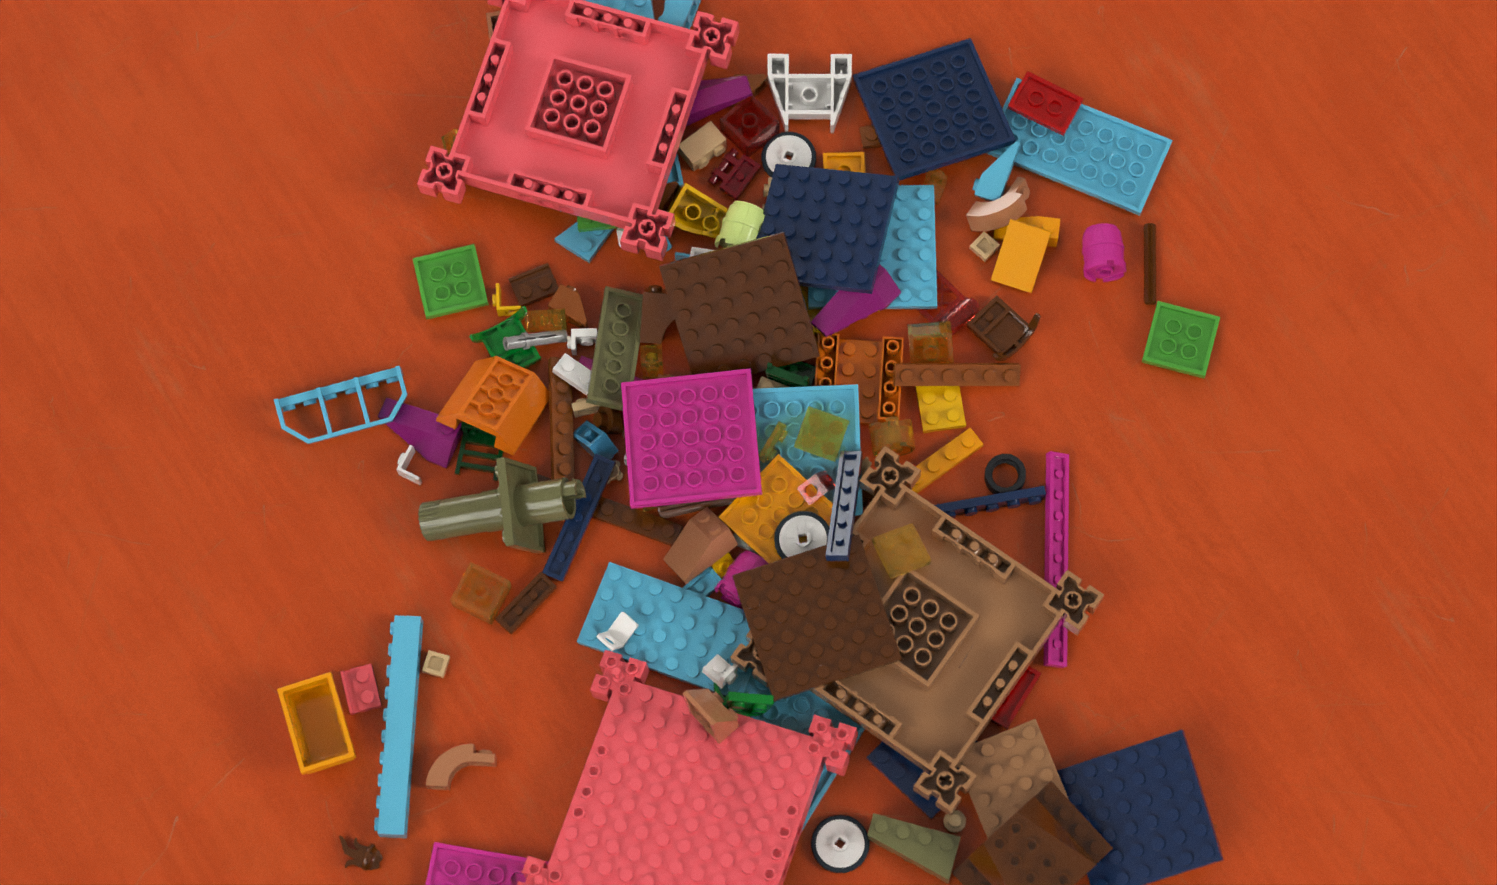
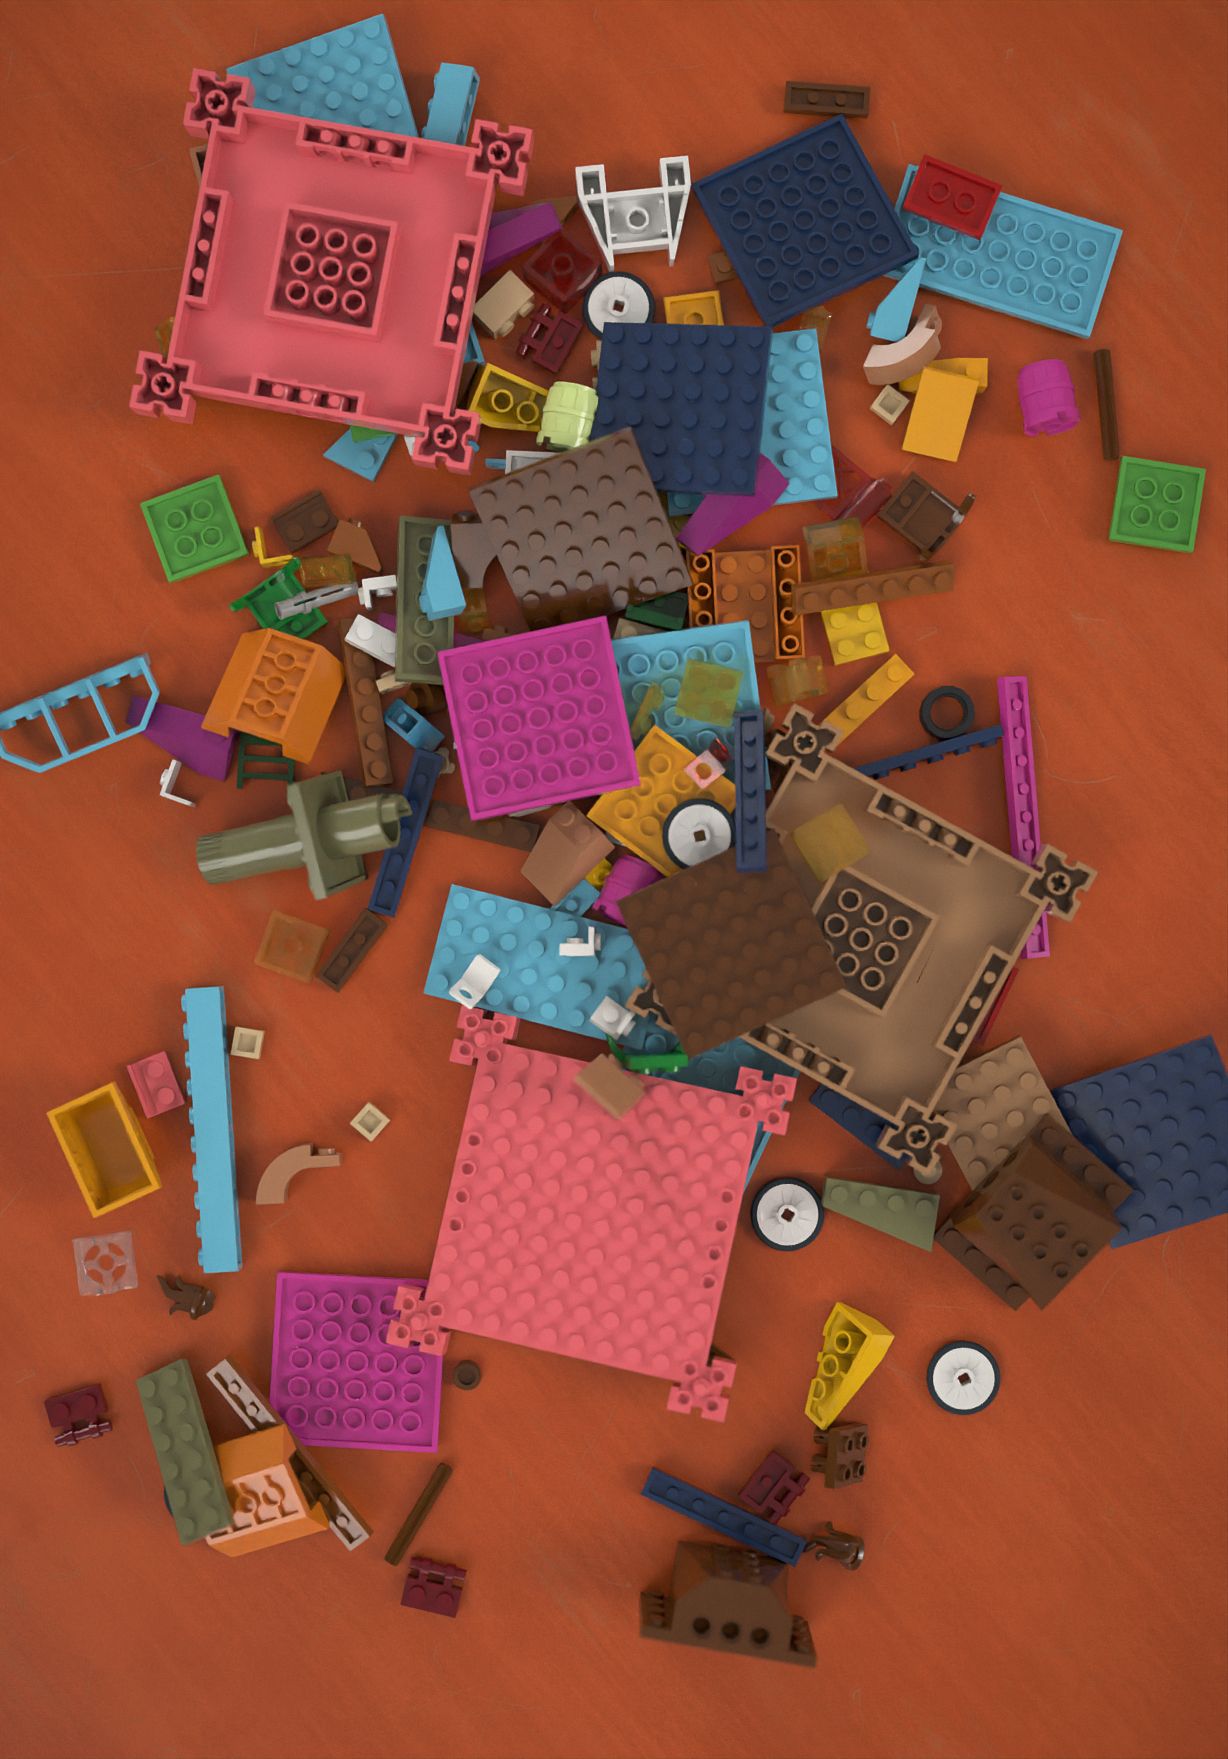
camera: 10 degrees left, 15 degrees up
(284, 806) = (129, 1277): none -> clear piece
(522, 734) = (370, 1121): none -> tan plate
(630, 340) = (441, 586): none -> medium azure slope
(699, 615) = (576, 946): none -> white bracket
(960, 27) = (826, 99): none -> reddish brown plate

